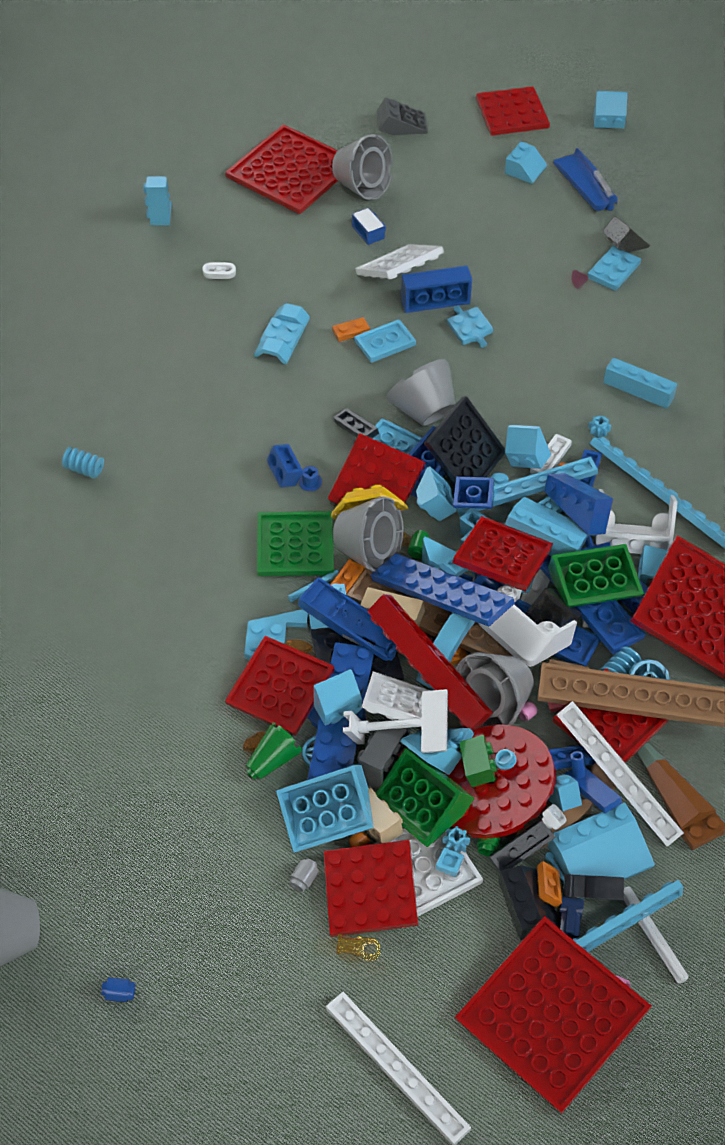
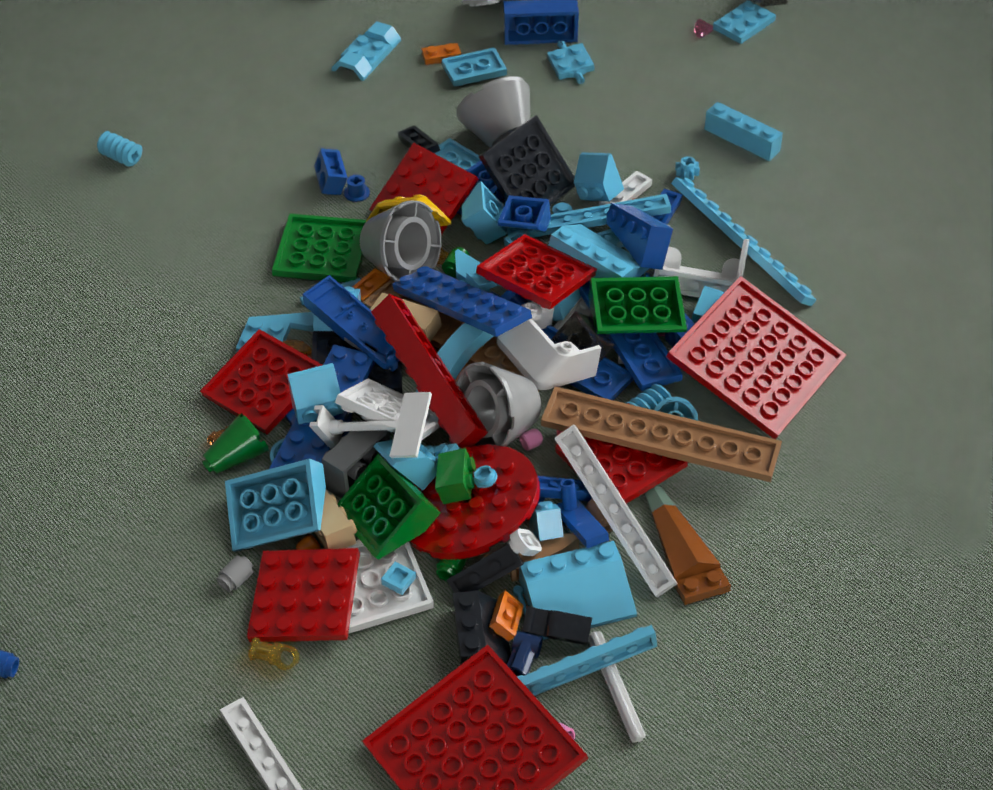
camera: 10 degrees right, 5 degrees down
(456, 834) = (412, 556): medium azure gear -> none

